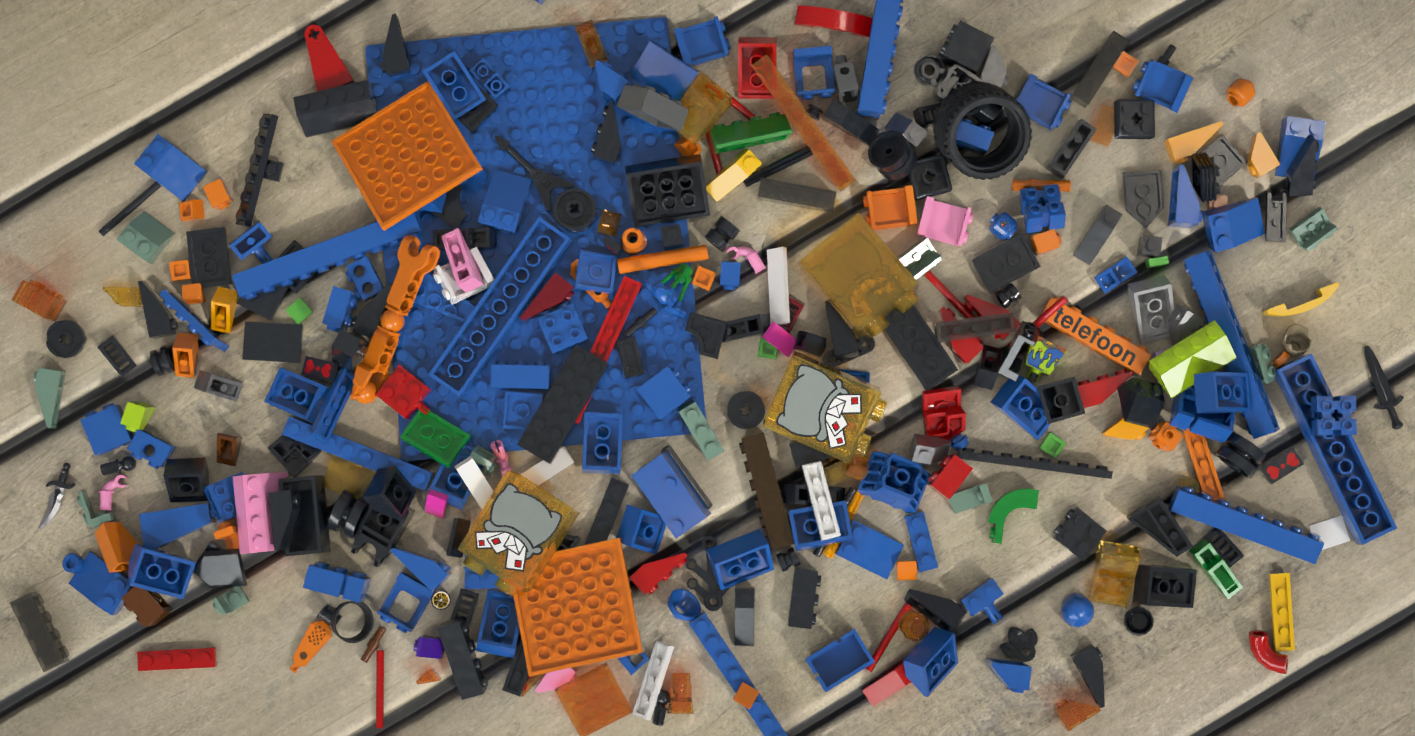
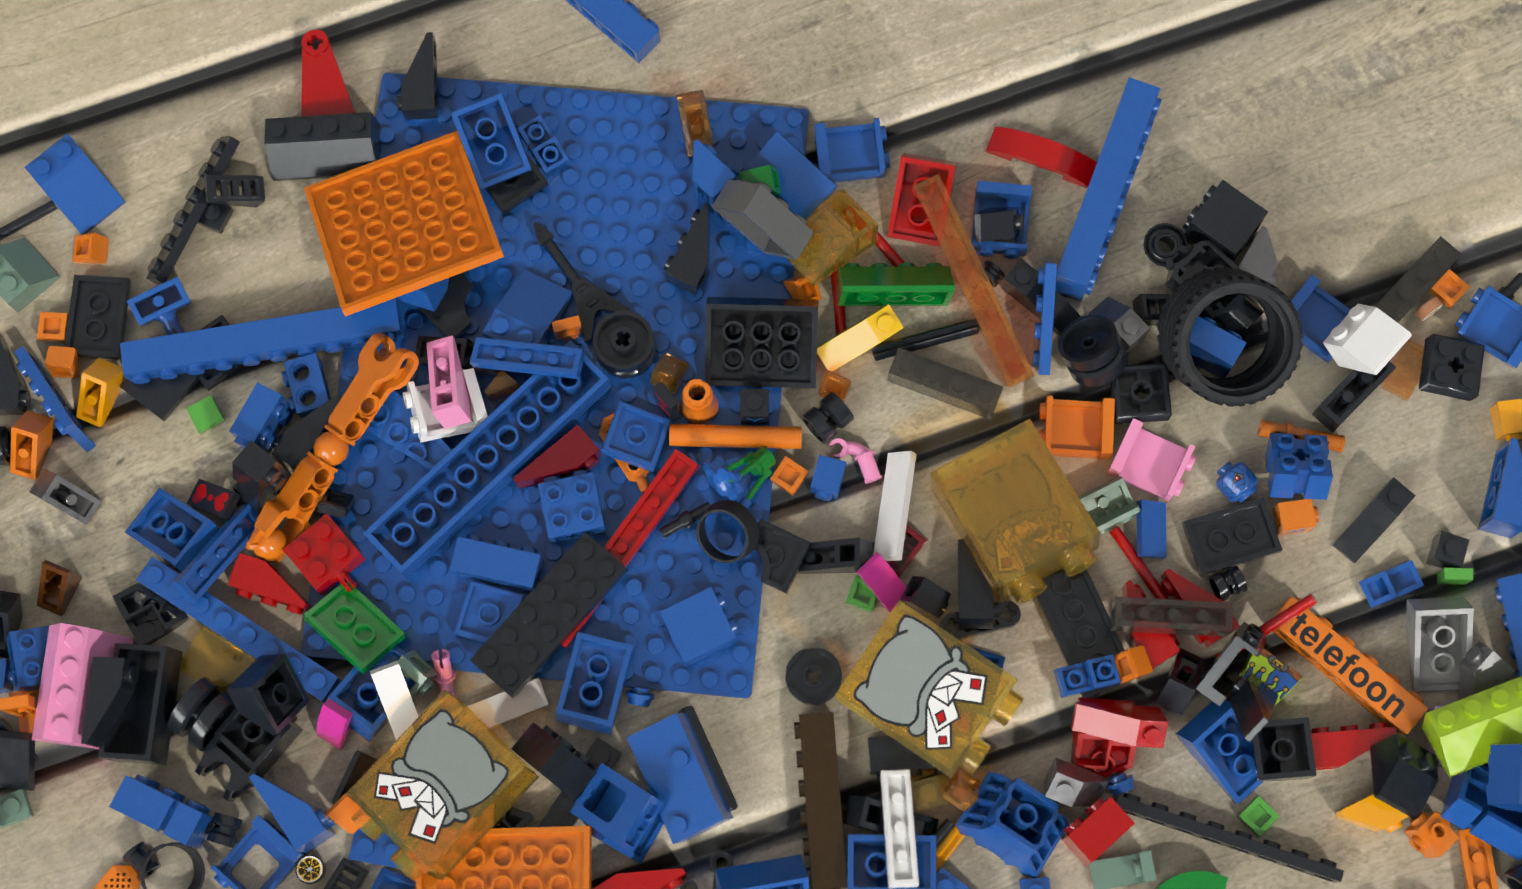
camera: 15 degrees right, 10 degrees down
(218, 194) = (131, 232): orange brick -> none
(272, 342) = (157, 451): black tile -> none
(294, 148) = (252, 190): none -> black slope
(365, 416) = (261, 579): none -> red slope
(379, 586) = (224, 829): none -> black wheel
(403, 356) = (336, 503): none -> black tile
(456, 560) = (342, 812): none -> orange slope
(497, 254) = (501, 386): none -> clear orange slope
(512, 234) = (527, 357): none -> blue plate
(534, 206) = (567, 328): none -> orange plate
(587, 499) = (555, 759): none -> black brick
(630, 357) = (660, 568): black tile -> none
(634, 445) = (640, 696): none -> blue plate
(645, 77) = (765, 174): none -> green brick
(646, 528) = (632, 817): none -> blue window
(678, 314) = (747, 522): none -> black tyre
(700, 429) = (741, 691): sand green arch -> none
(722, 210) = (834, 383): none -> clear orange slope
(812, 77) = (998, 223): none -> black slope
(845, 80) = (1043, 235): dark grey torso -> none
(857, 145) = (1045, 305): none -> blue plate
(925, 376) = (1087, 676): none -> blue slope
(951, 268) = (1151, 529): none -> blue tile
(953, 363) = (1132, 664): none -> orange slope
(954, 403) = (1121, 723): none -> slope
(1036, 376) = (1252, 704): none -> black slope
(1074, 114) = (1366, 339): none -> white slope
(1113, 81) = (1428, 308): none -> nougat tile
(1143, 195) = (1448, 477): black tile -> none

